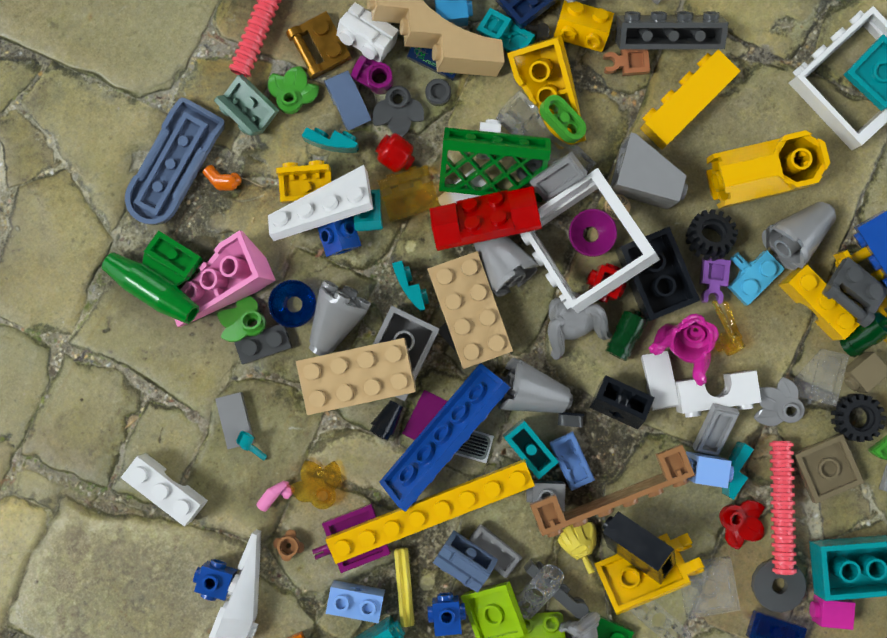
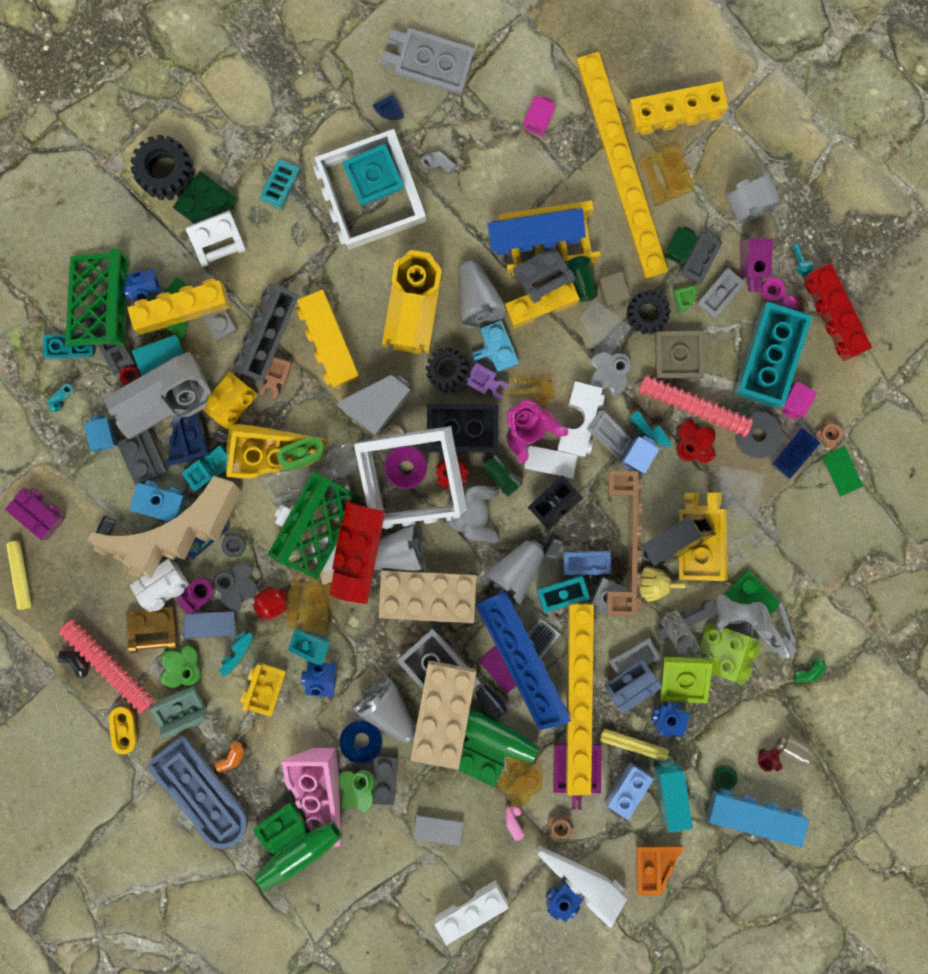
camera: 65 degrees left, 0 degrees up
(205, 57) = (122, 729): none -> yellow plate
(245, 441) = (459, 828): teal hand -> none
(328, 204) = (290, 676): white wing -> none
(342, 436) = (488, 744): none -> green plate
(413, 292) = (394, 636): teal slope -> none
(558, 177) = (348, 478): light grey tile -> none

